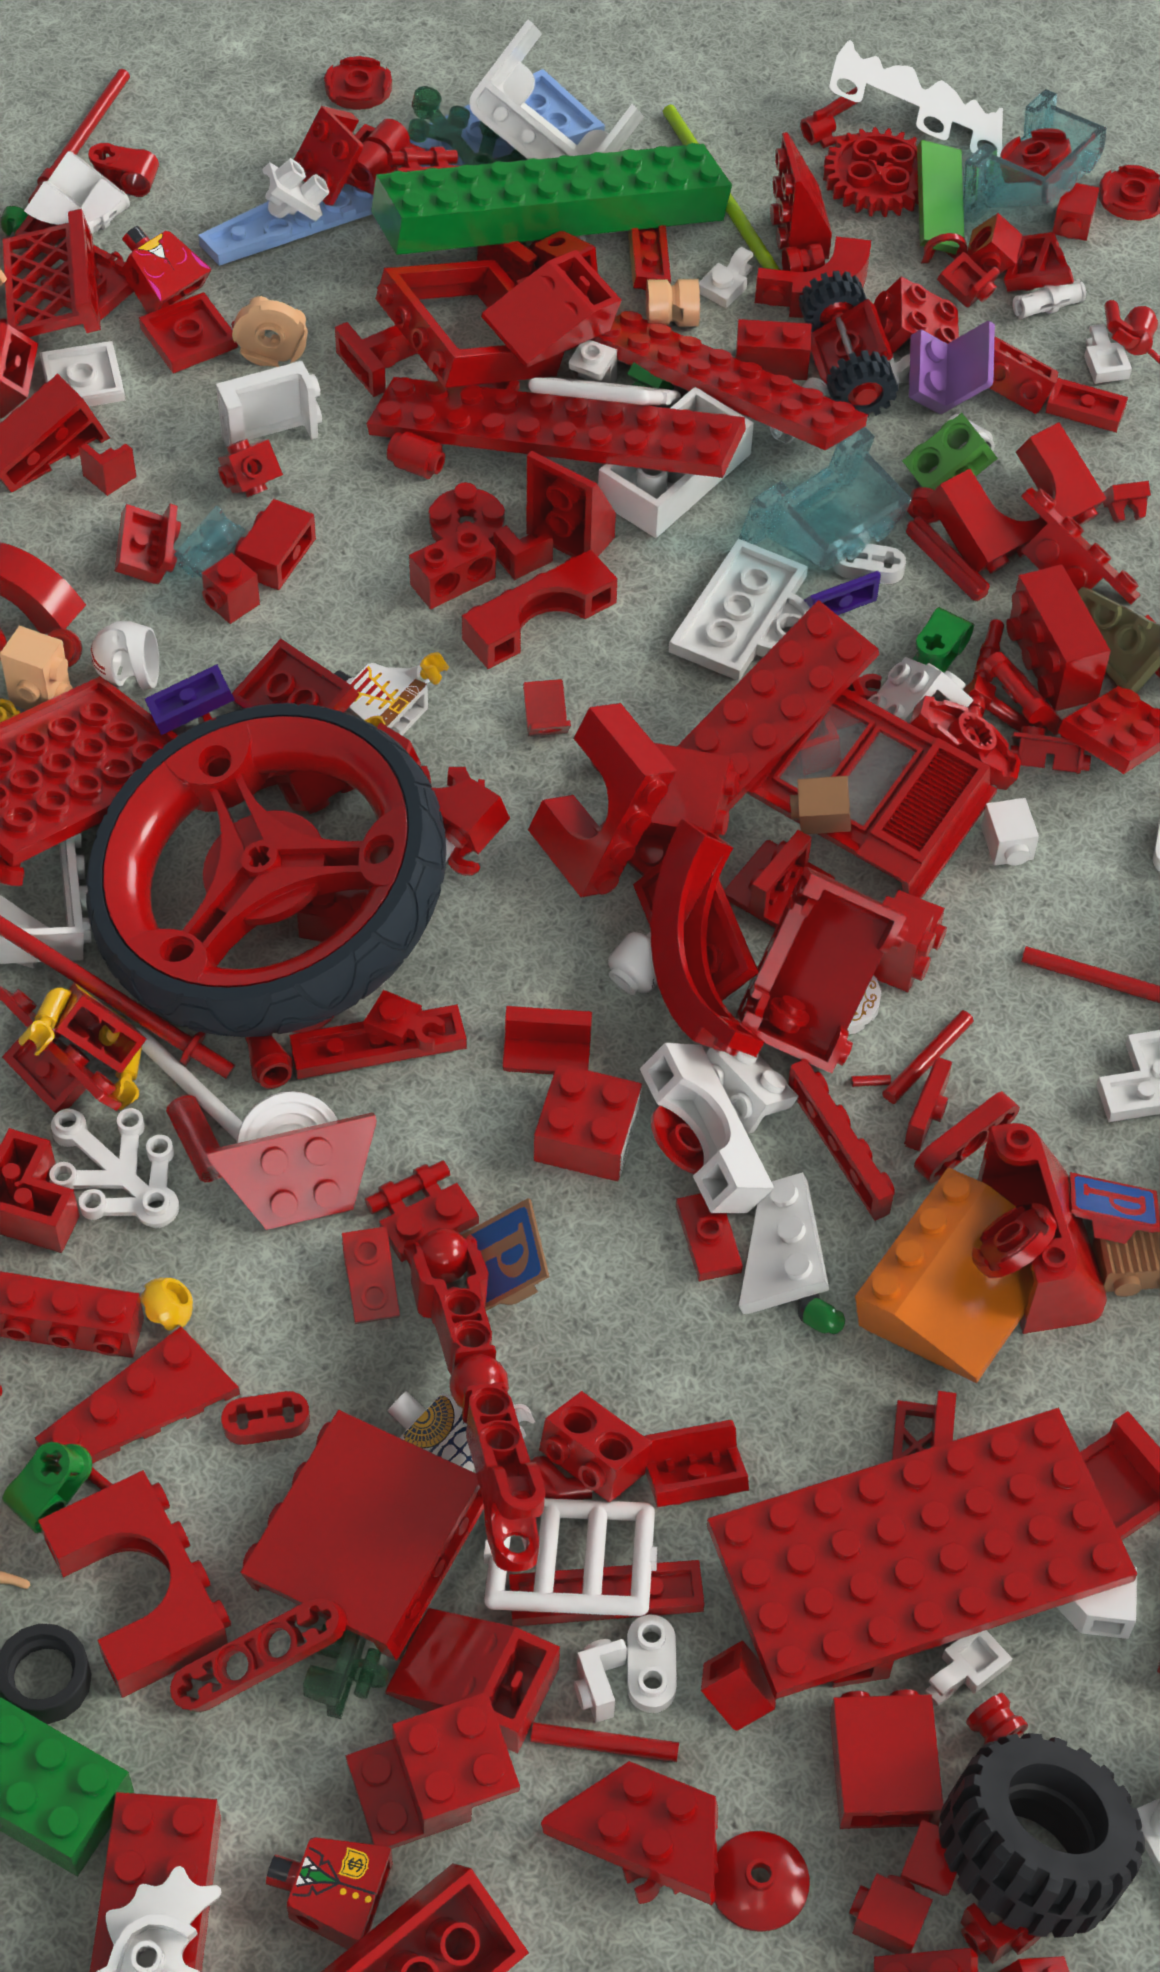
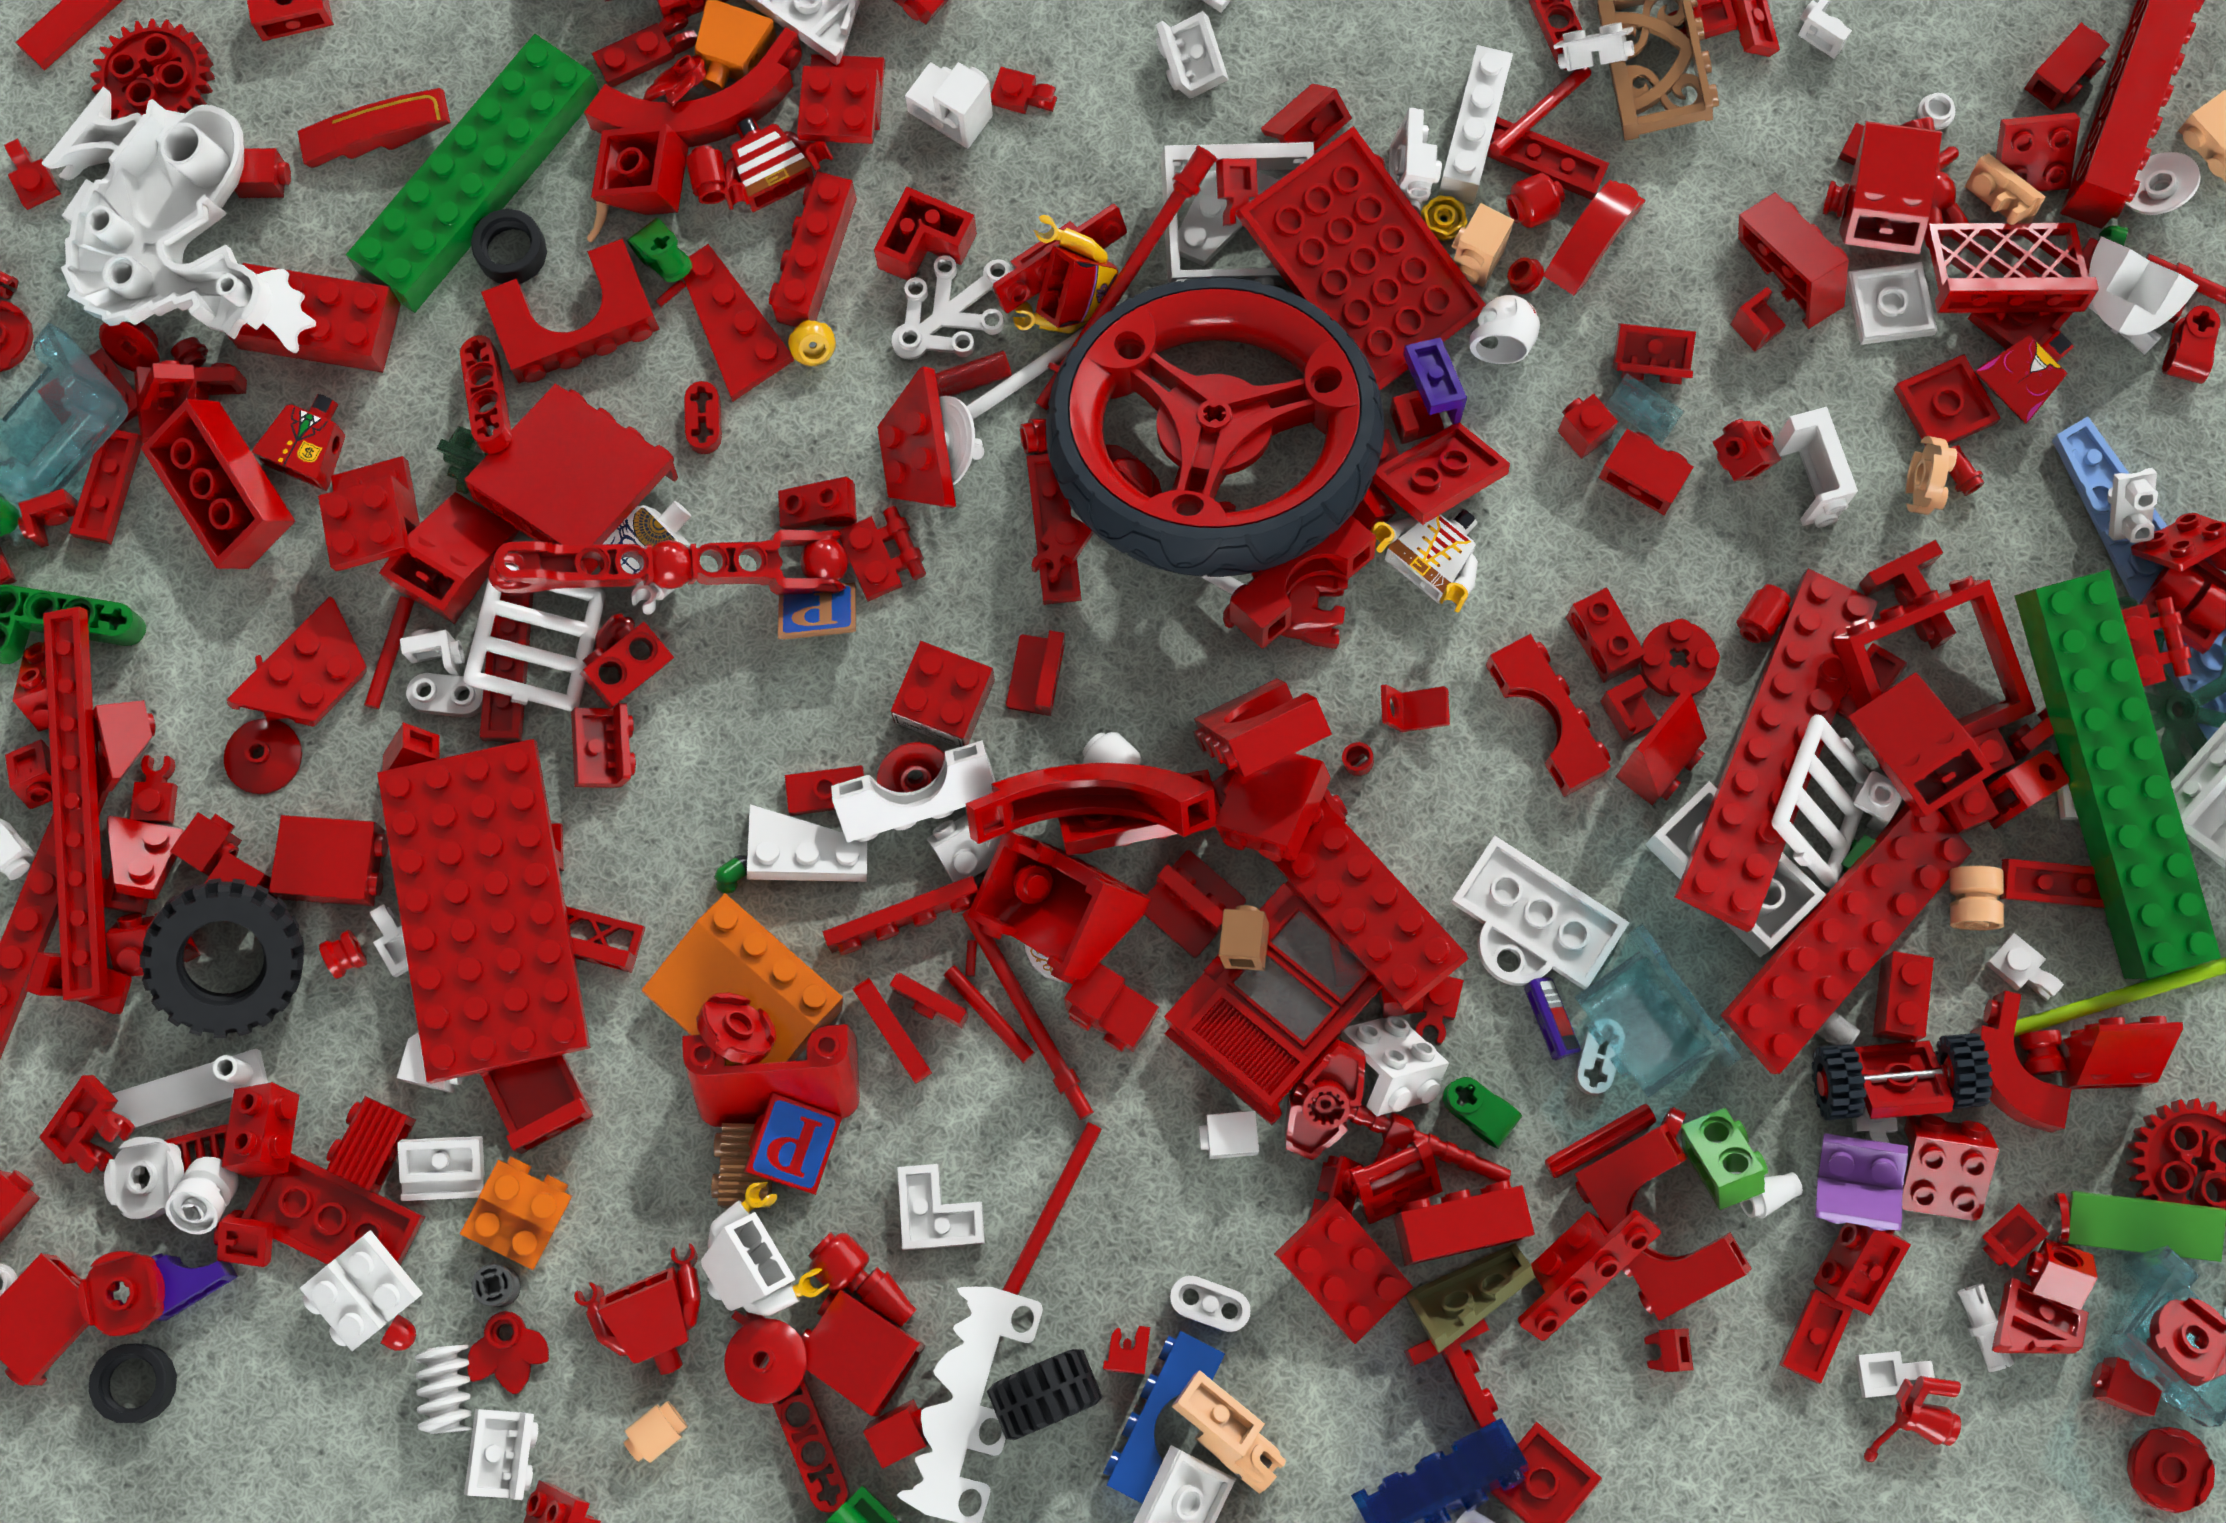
camera: 100 degrees right, 20 degrees up
(981, 980) = (1065, 1078): none -> red bar

